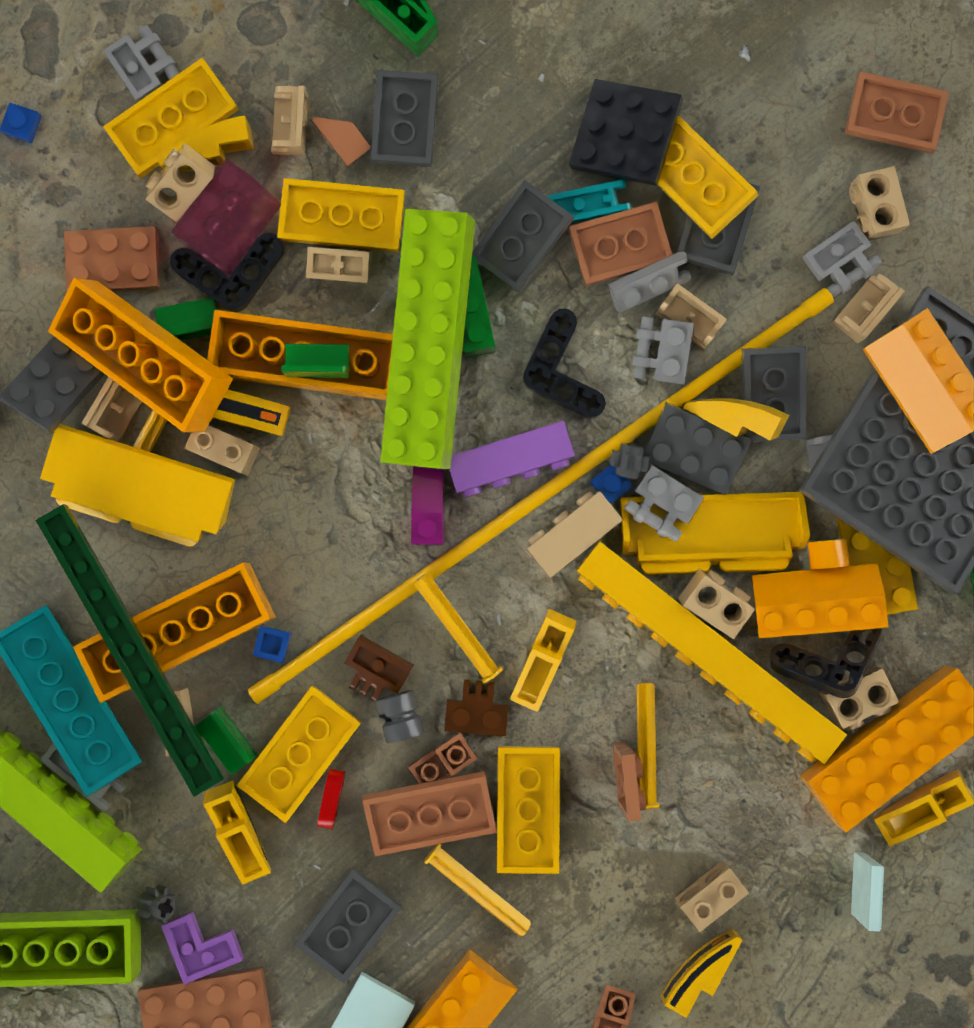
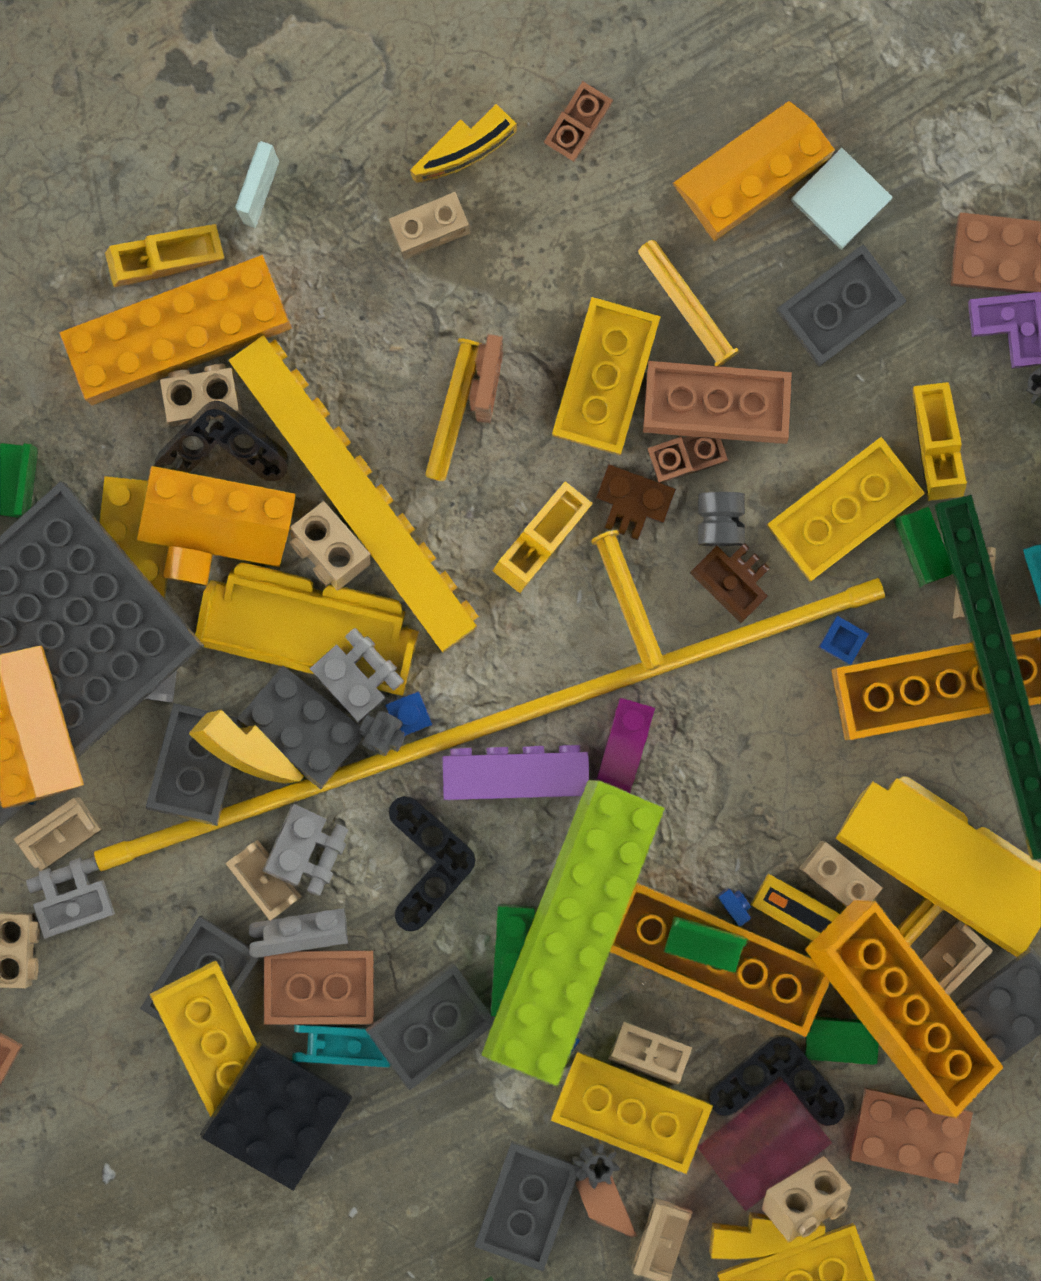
camera: 165 degrees left, 0 degrees up
(302, 403) = (735, 905): none -> blue plate
(331, 799) = (823, 449): red beam -> none
(358, 164) = (601, 1172): none -> dark grey gear
(573, 533) = (468, 670): tan brick -> none

